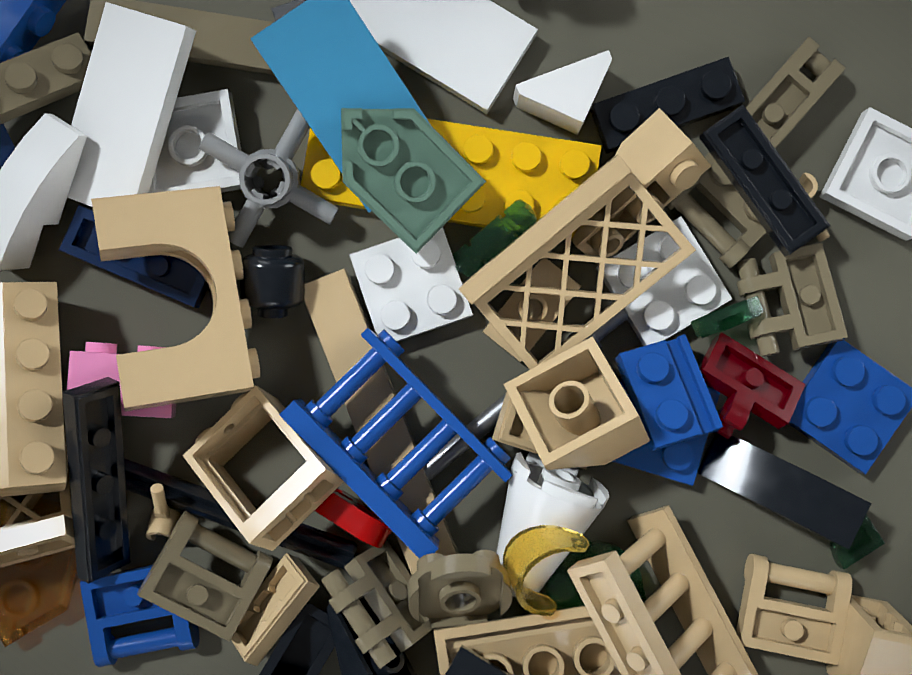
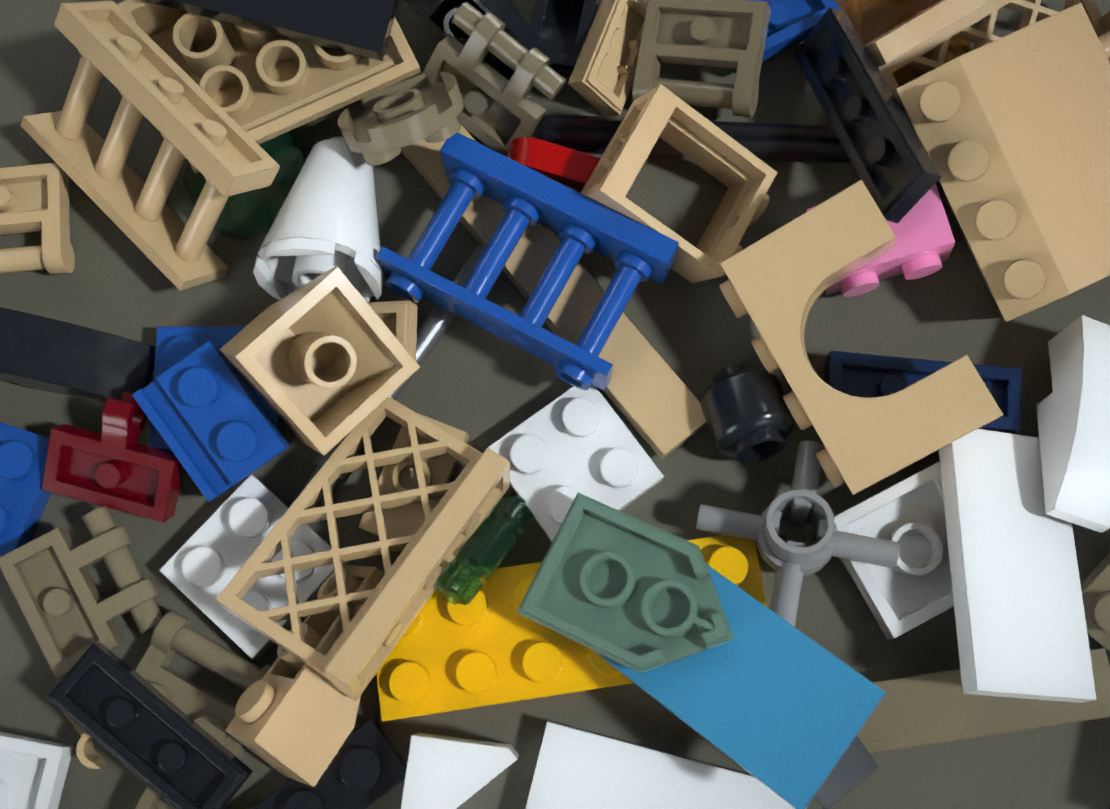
camera: 160 degrees right, 10 degrees down
(162, 517) = (775, 106): tan hand -> none
(530, 548) = (325, 178): clear yellow helmet -> none
(727, 317) = (173, 533): clear green tile -> none

